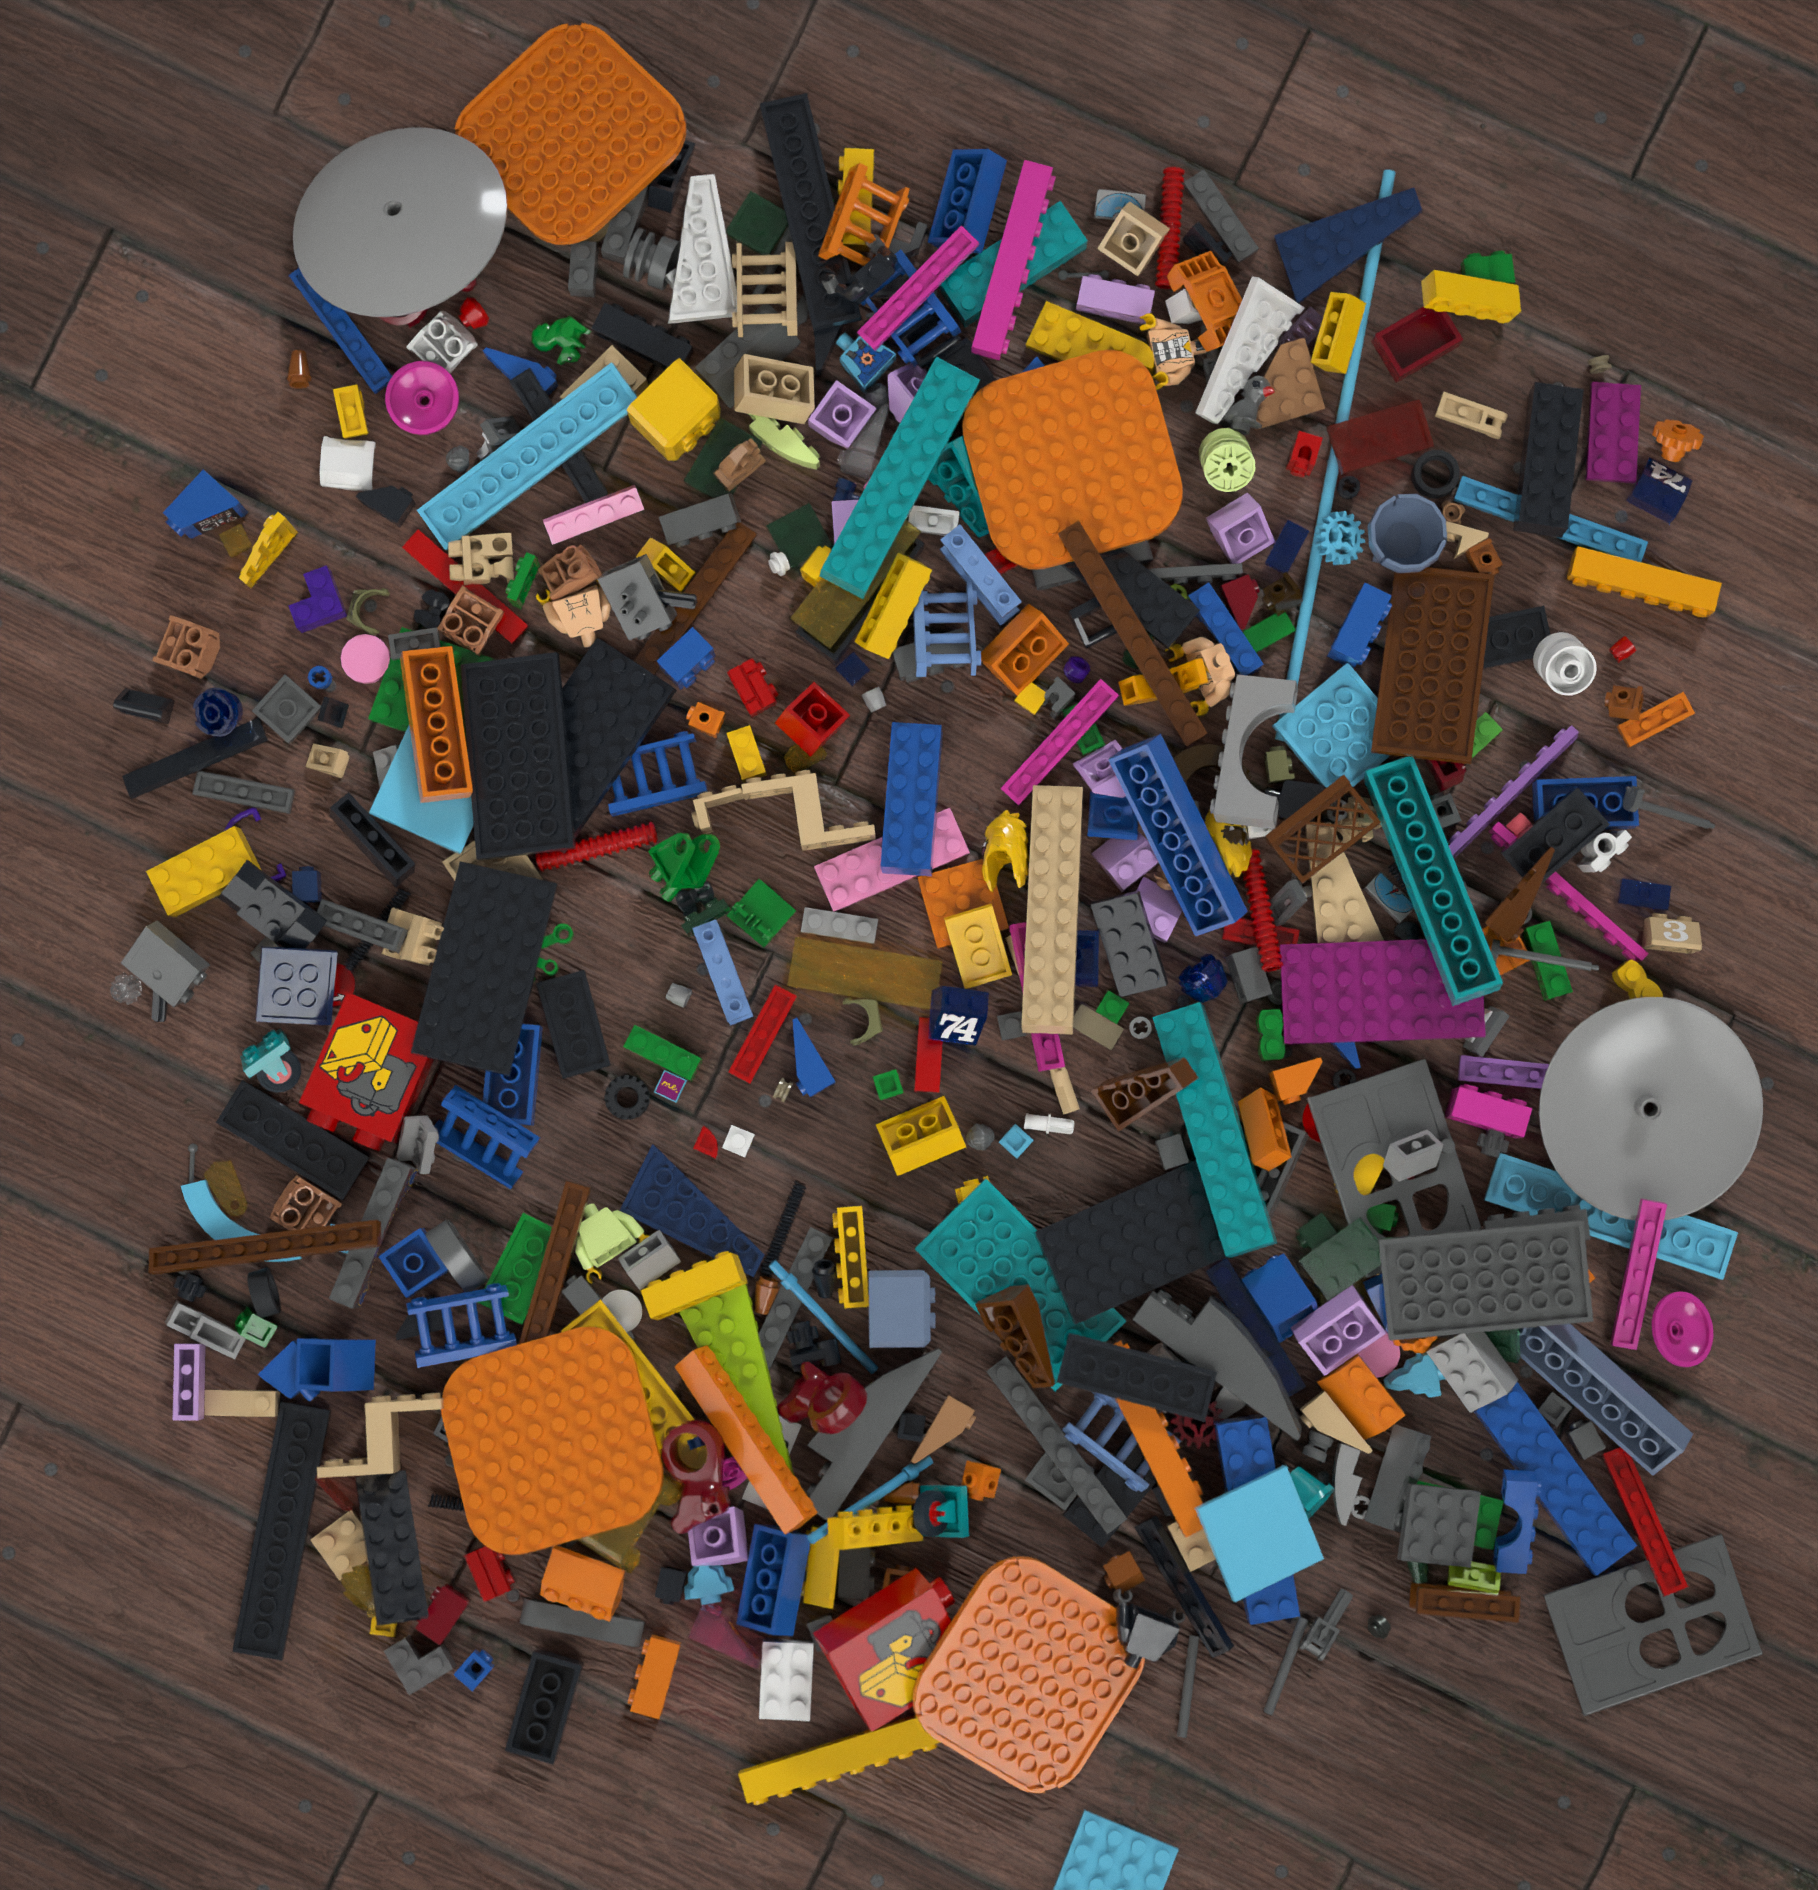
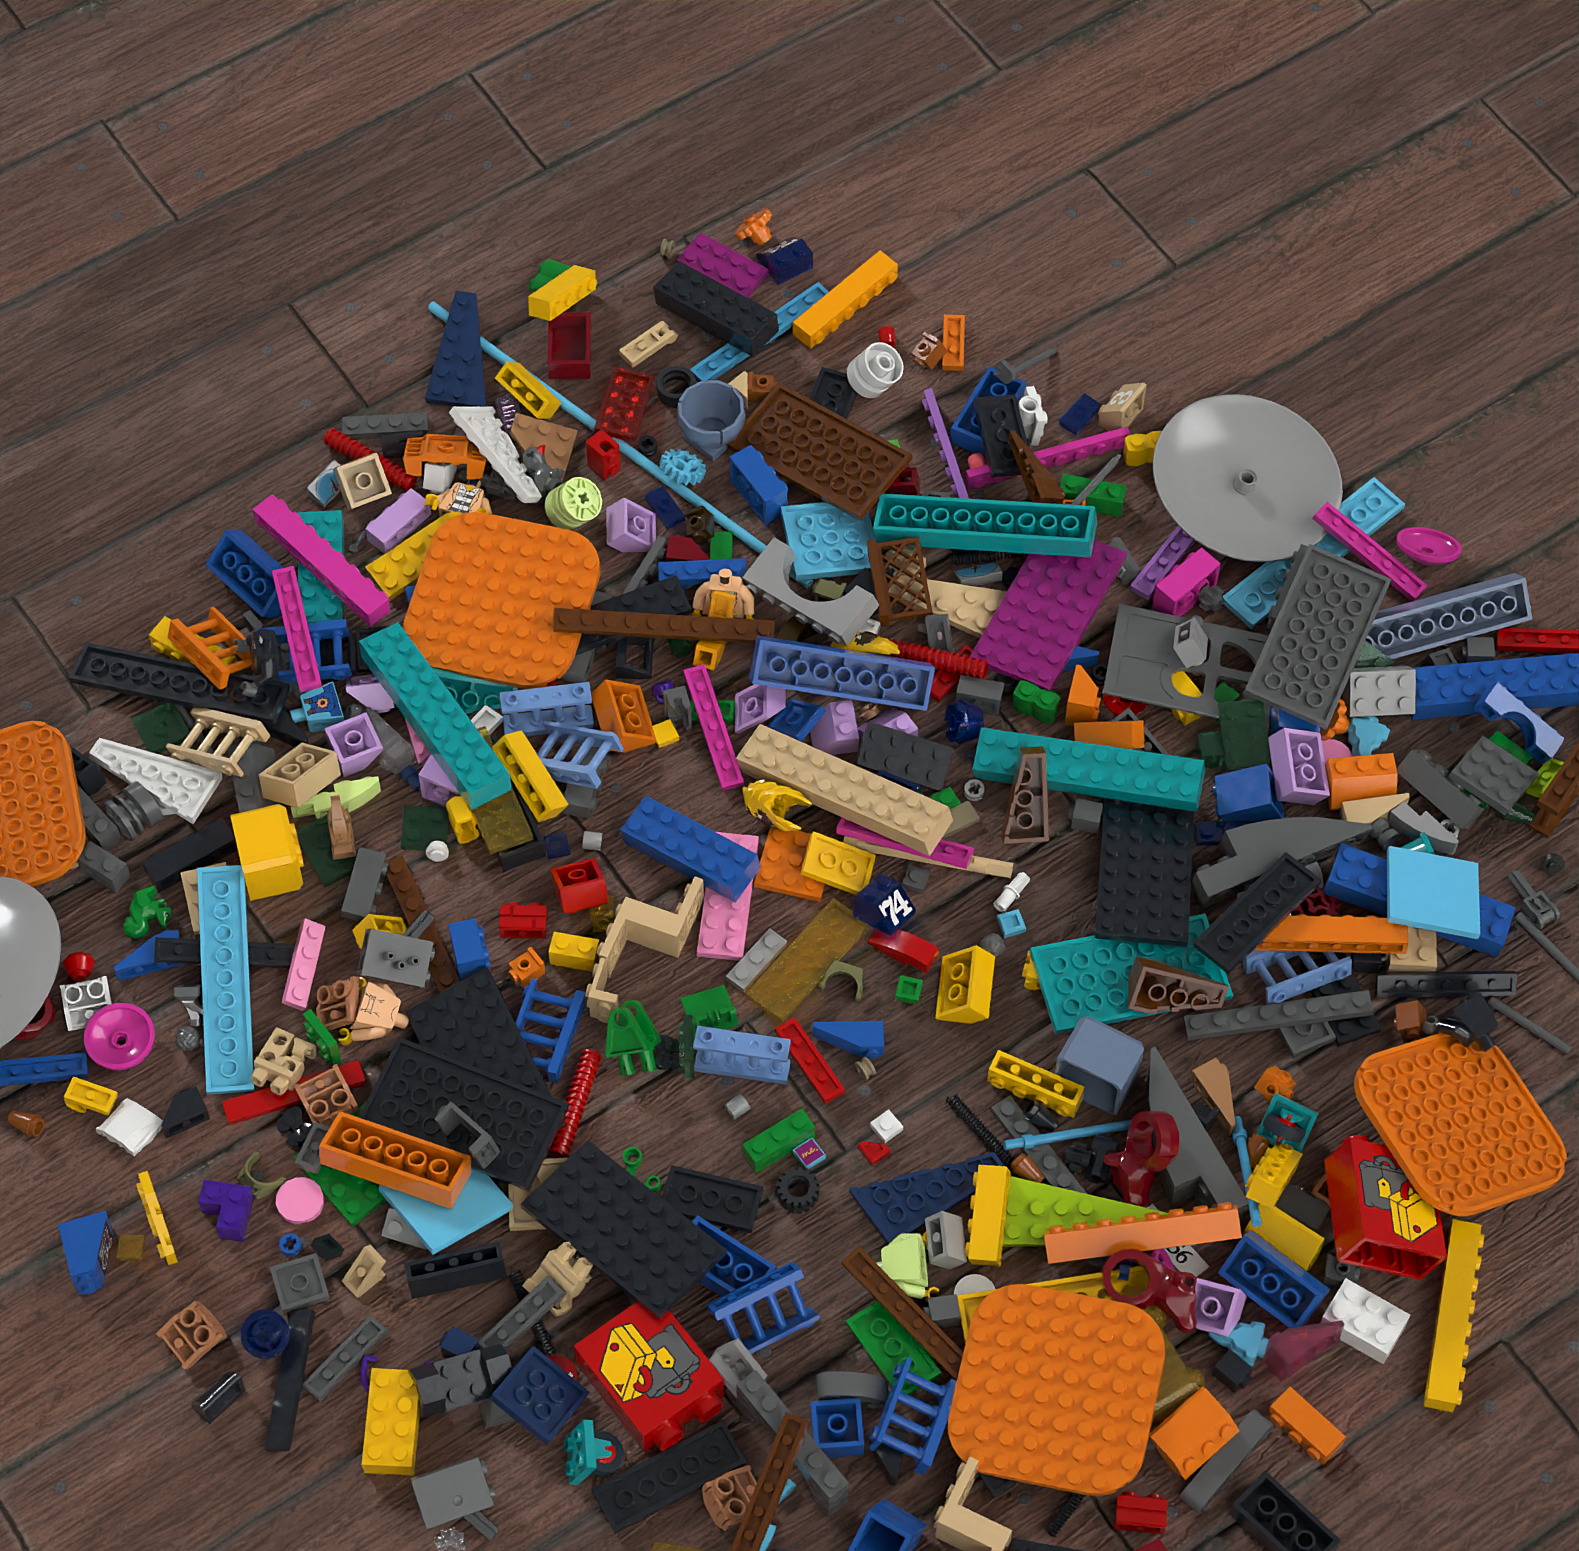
camera: 60 degrees left, 25 degrees down
(495, 778) = (483, 1149): none -> dark grey panel

